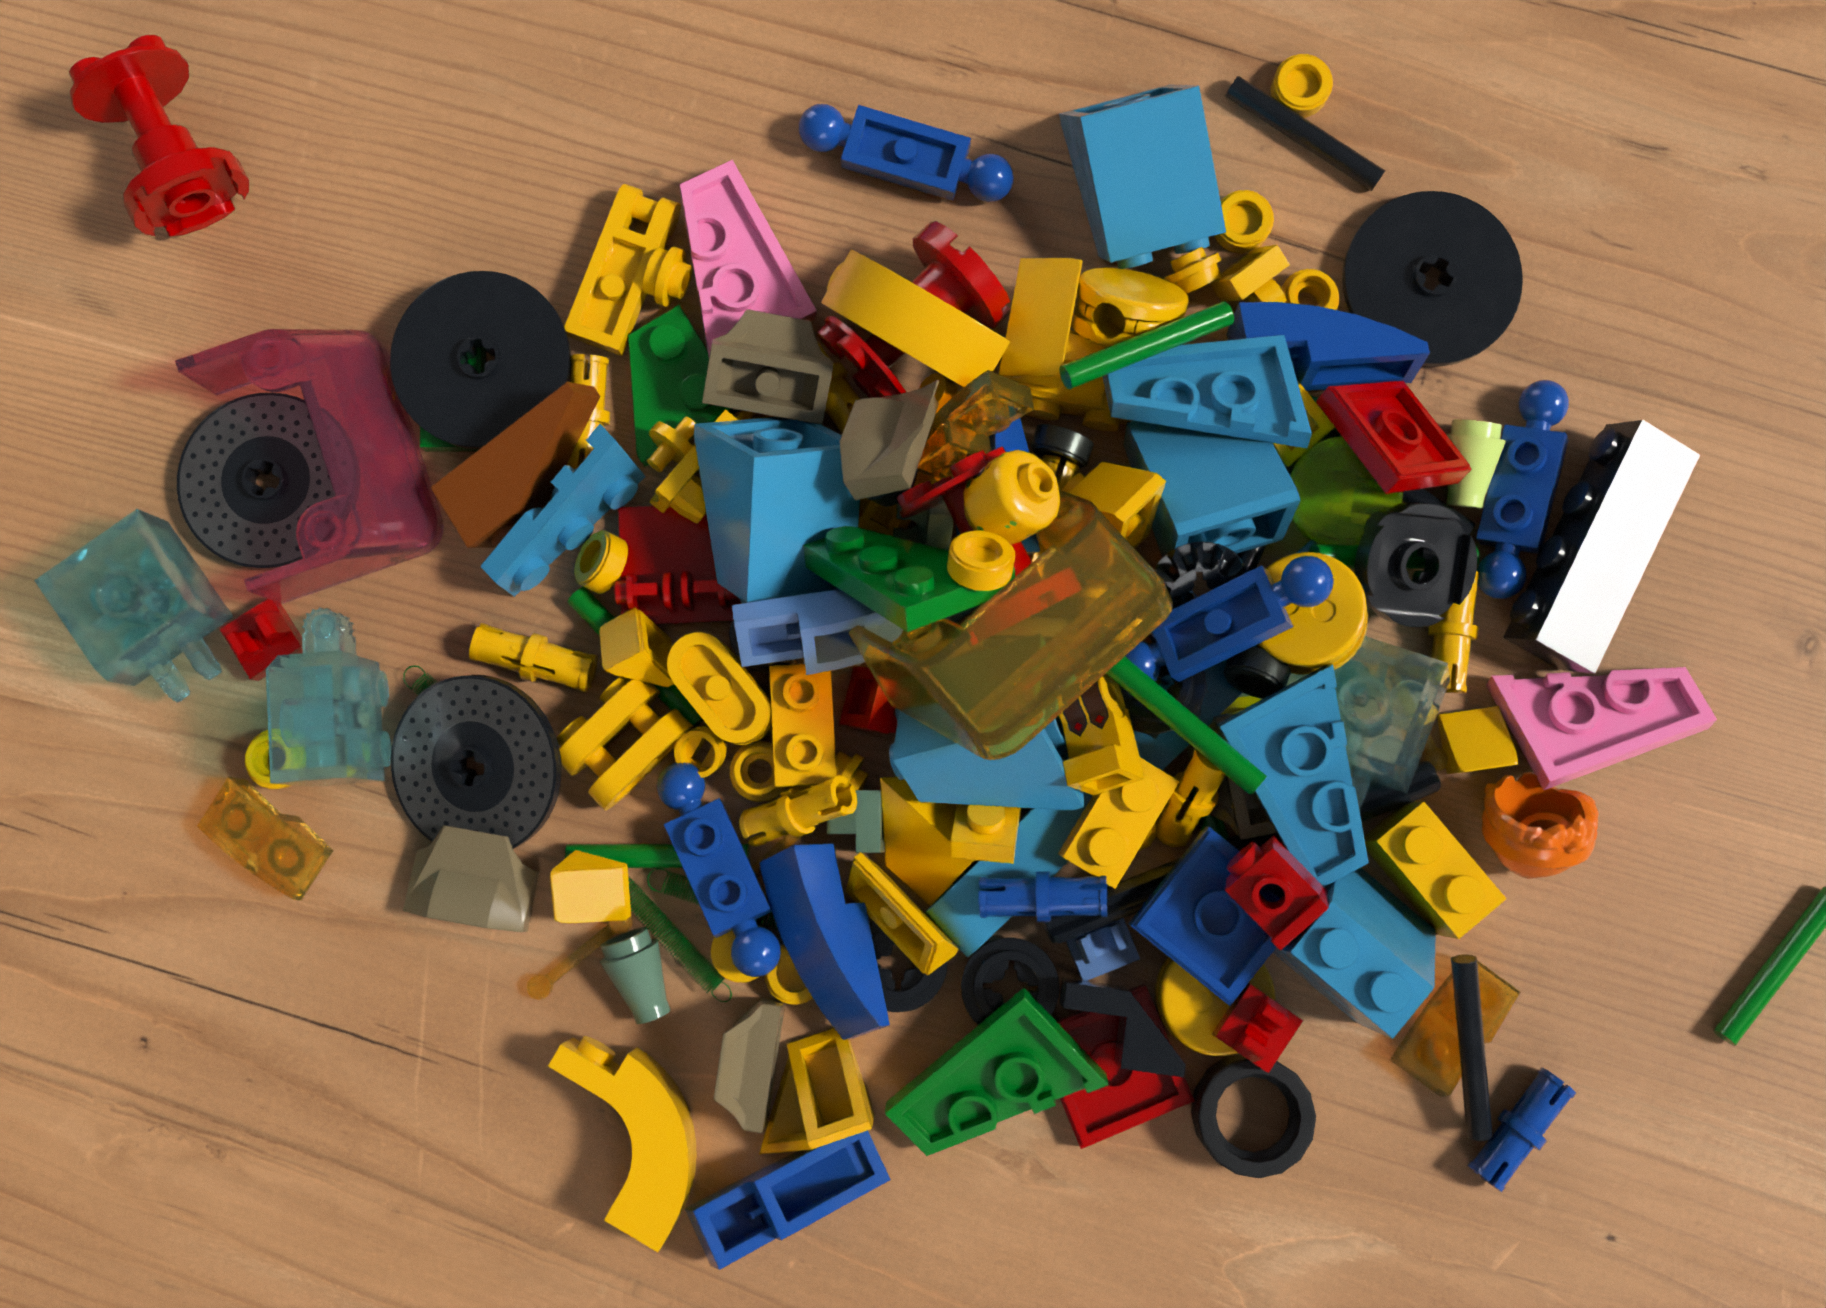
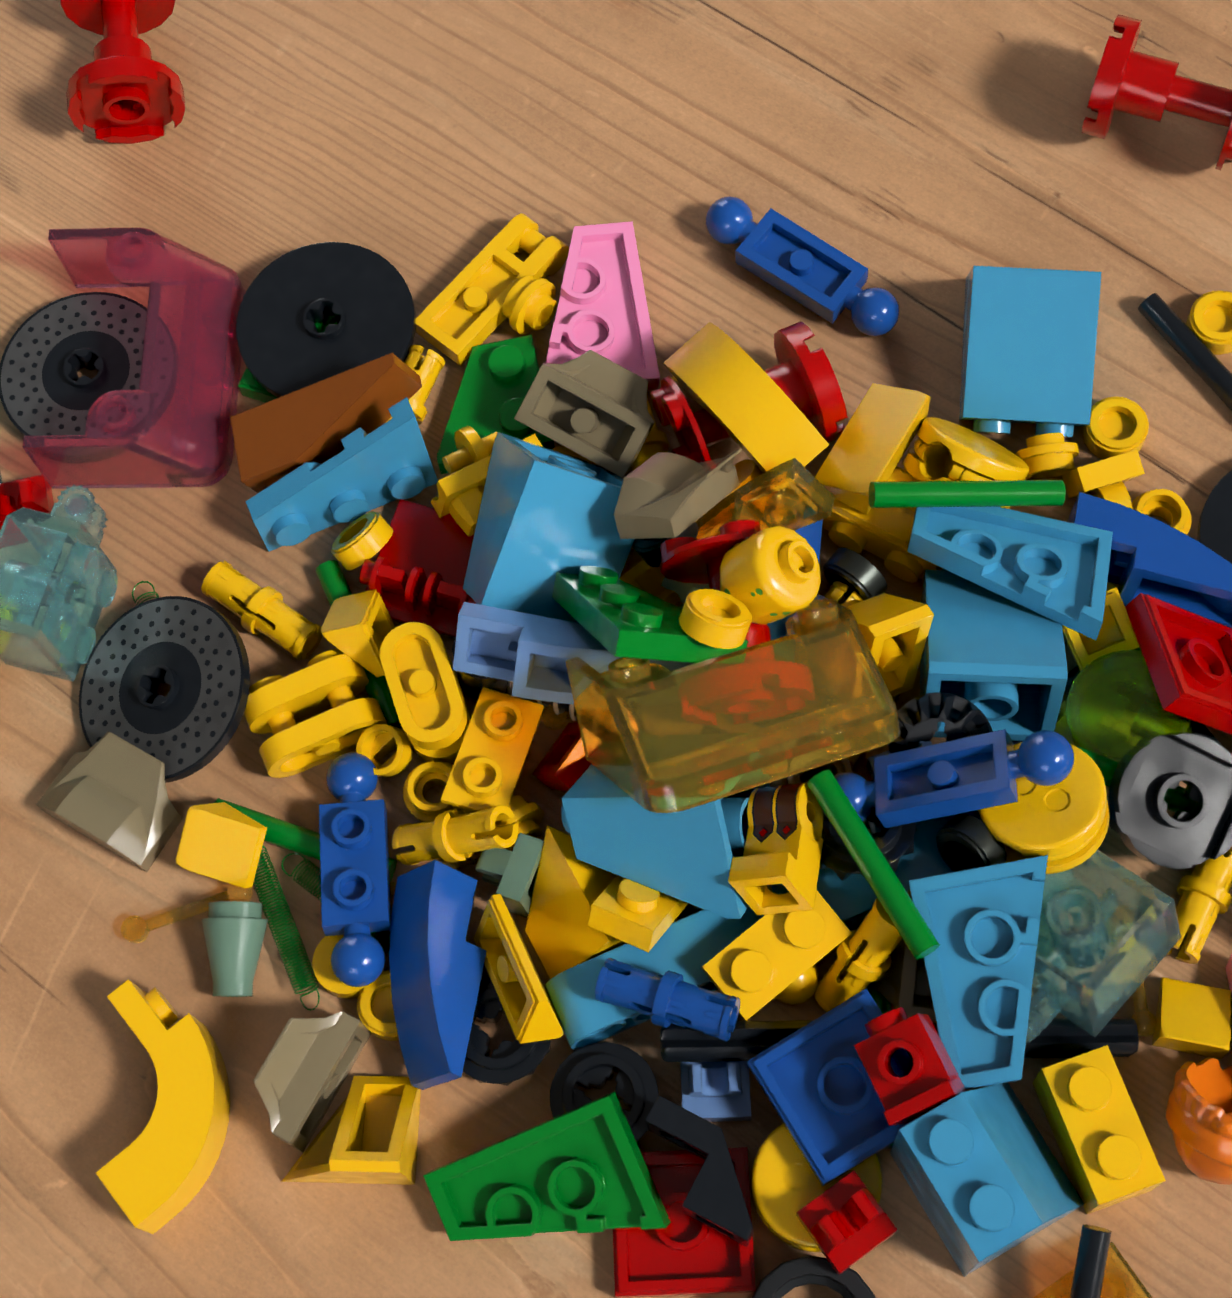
camera: 25 degrees right, 15 degrees down
(785, 1197) = (291, 1227): blue slope -> none

